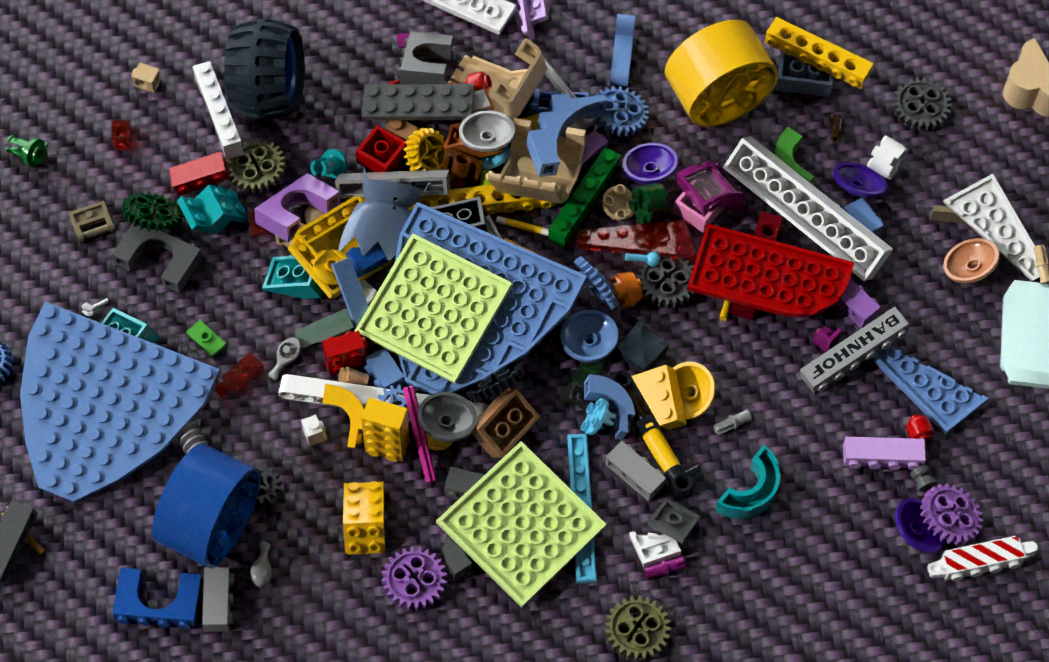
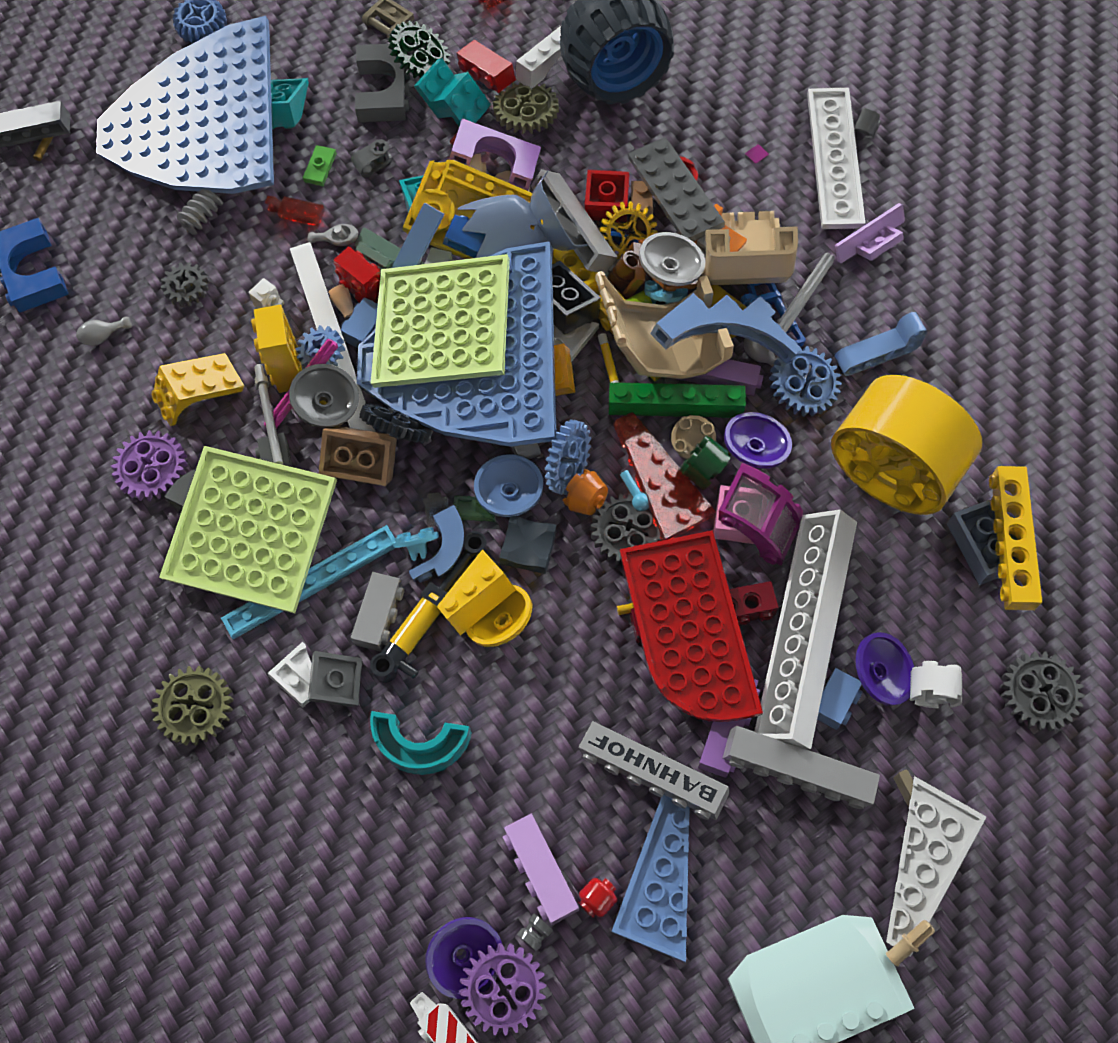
camera: 65 degrees right, 5 degrees up
(90, 310) = (298, 65): white hand -> none
(206, 505) = (109, 238): blue wheel -> none
(217, 599) = (48, 311): light grey brick -> none
(229, 298) = (370, 159): none -> dark grey piece
(330, 164) = (566, 162): teal piece -> none
(345, 399) = (302, 304): yellow arch -> none
(391, 467) = (262, 385): none -> light grey bar
(420, 47) = (750, 164): dark grey arch -> none
(480, 80) = (740, 232): red head -> none
(664, 567) = (278, 698): magenta pin -> none
(732, 422) = (492, 683): light grey axle -> none
(786, 146) = (867, 570): bright green arch -> none
(826, 338) = (658, 733): magenta panel -> none
(835, 134) = (939, 613): dark brown arm -> none
(899, 263) = (801, 767): none -> light grey brick
(971, 260) = (860, 851): nougat dish -> none

